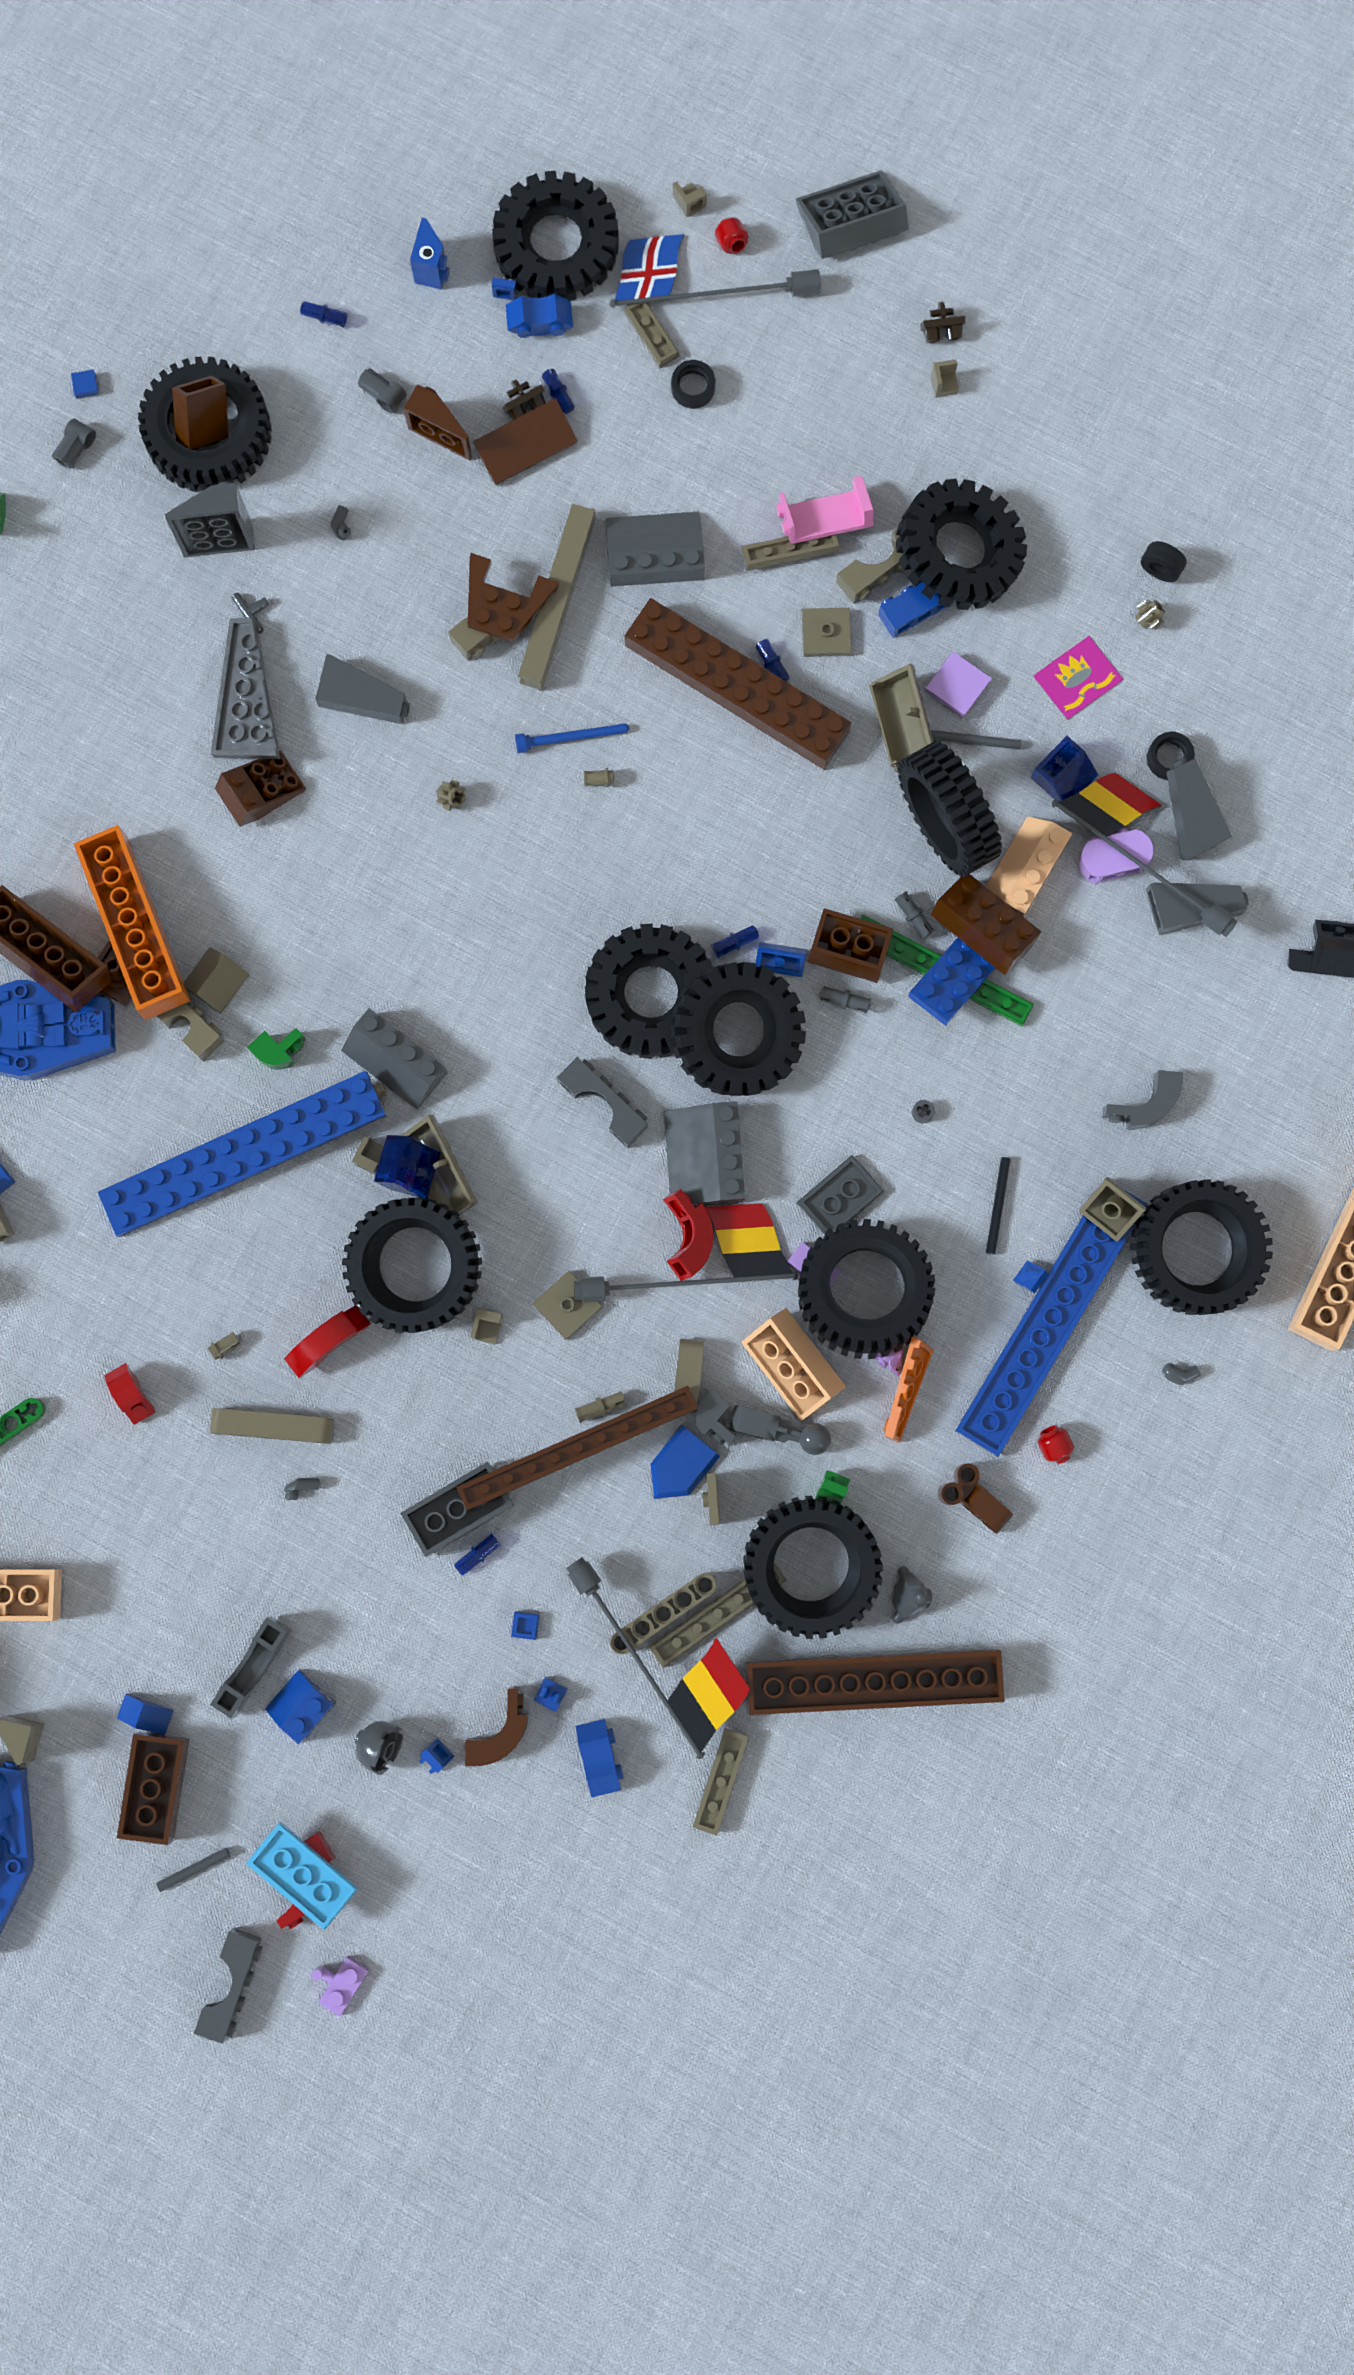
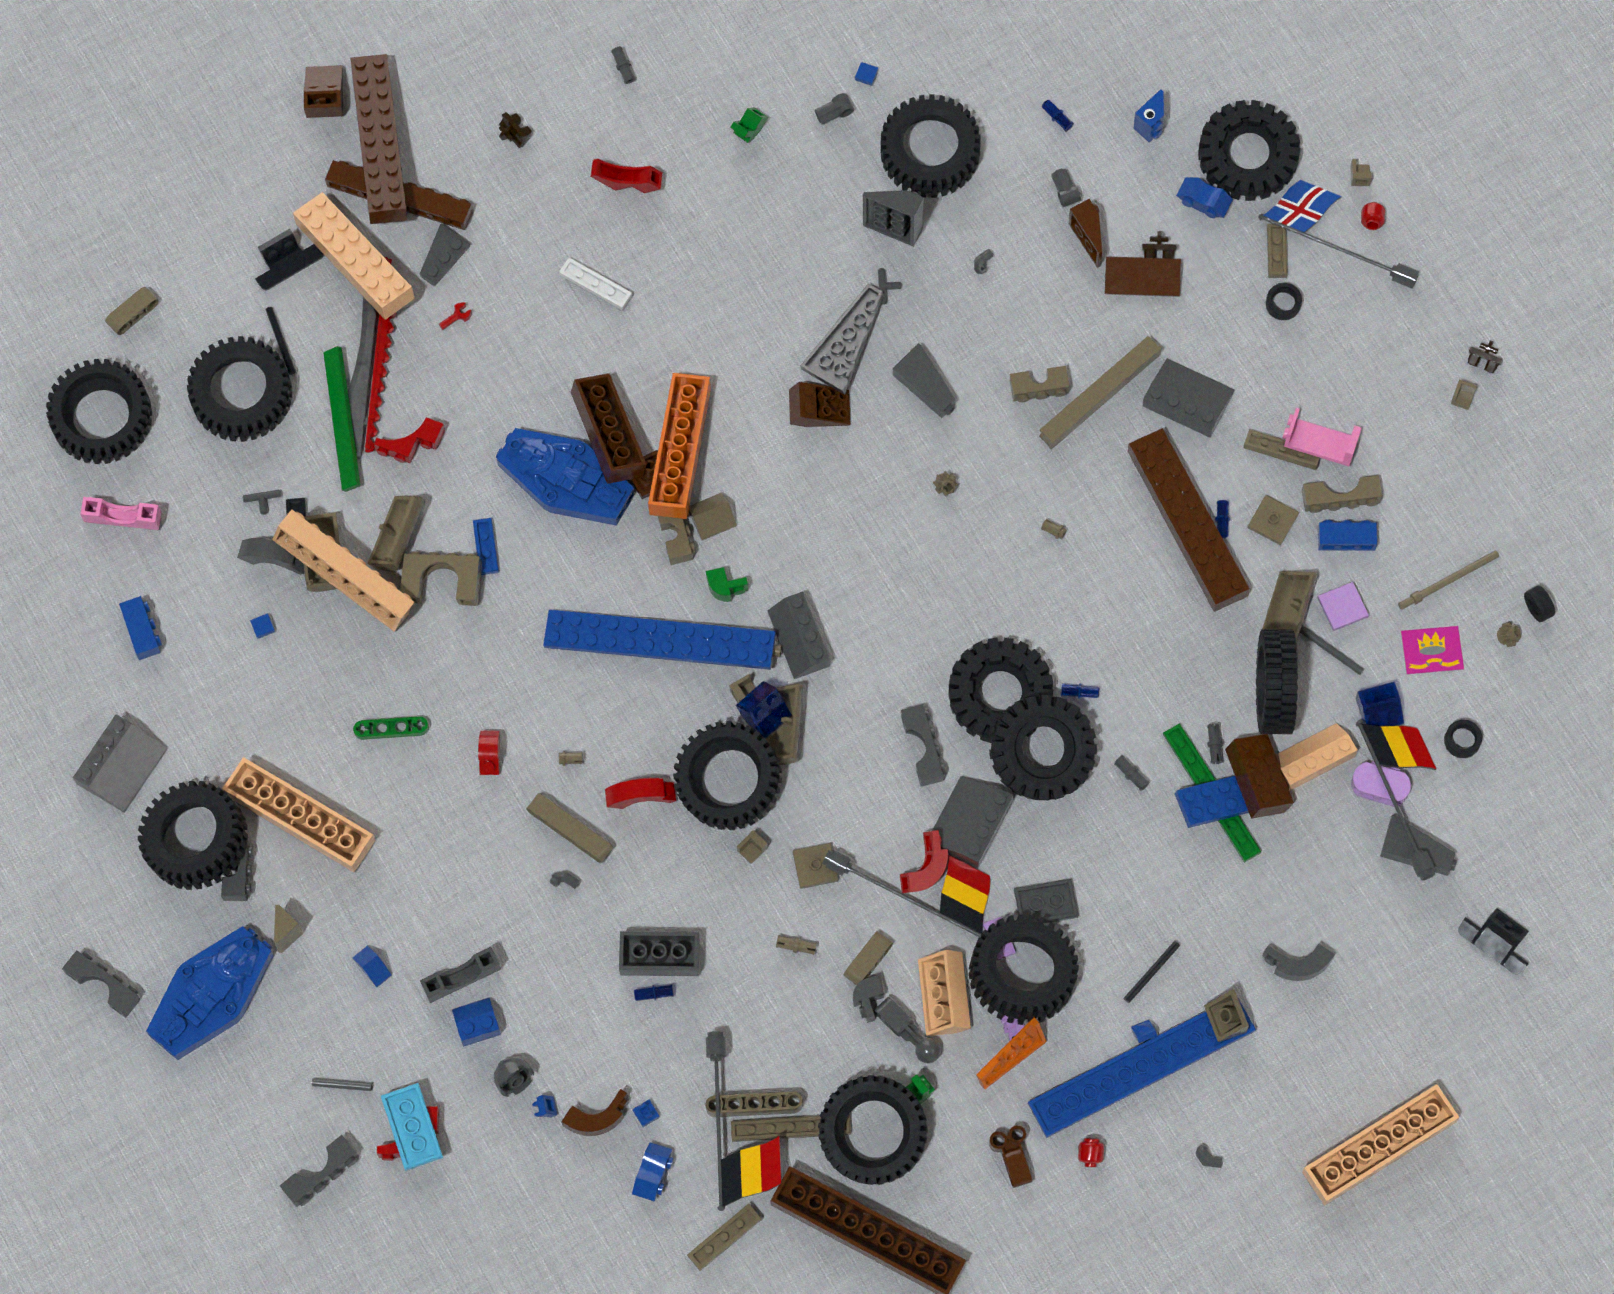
camera: 35 degrees right, 10 degrees down
(153, 1788) = (349, 1014): reddish brown brick -> none
(200, 412) = (931, 137): reddish brown brick -> none
(342, 1985) = (392, 1217): lavender plate -> none
(500, 610) = (1053, 379): reddish brown wing -> none
(504, 288) = (1191, 166): blue tile -> none
(525, 742) = (1017, 477): blue piece -> none
(525, 1625) = (657, 1058): blue tile -> none
(558, 390) = (1186, 255): clear blue axle -> none
(577, 1448) = (763, 958): reddish brown plate -> none
(681, 1465) = (827, 1016): blue tile -> none
(711, 1499) = (832, 1047): dark tan plate -> none
(781, 958) = (1104, 721): blue slope -> none
(850, 945) = (1156, 738): reddish brown slope -> none
(853, 214) = (1468, 247): dark grey slope -> none
(909, 1596) = (927, 1192): dark grey rock -> none
(926, 1118) = (1138, 885): dark grey bush -> none
(961, 504) = (1420, 486): black tyre -> none
(1029, 628) = (1417, 597): none -> dark tan bar
(1194, 810) = (1455, 784): dark grey slope -> none
(1246, 1239) = (1306, 1058): black tyre -> none

